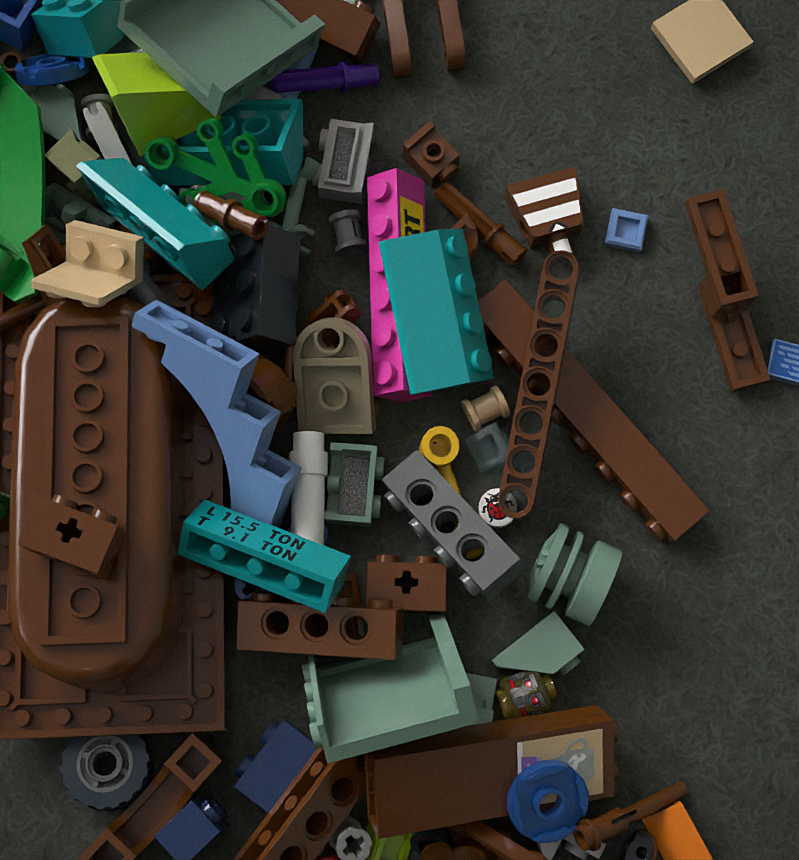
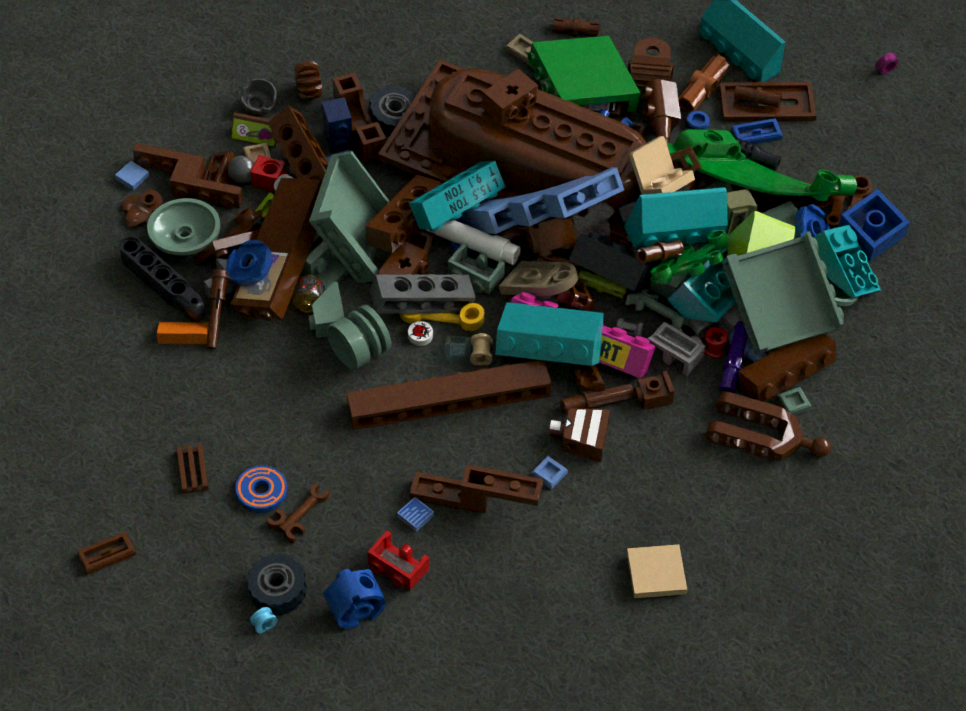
camera: 115 degrees right, 25 degrees down
(313, 104) = (715, 342): none -> red bush
(535, 366) = (476, 361): reddish brown beam -> none

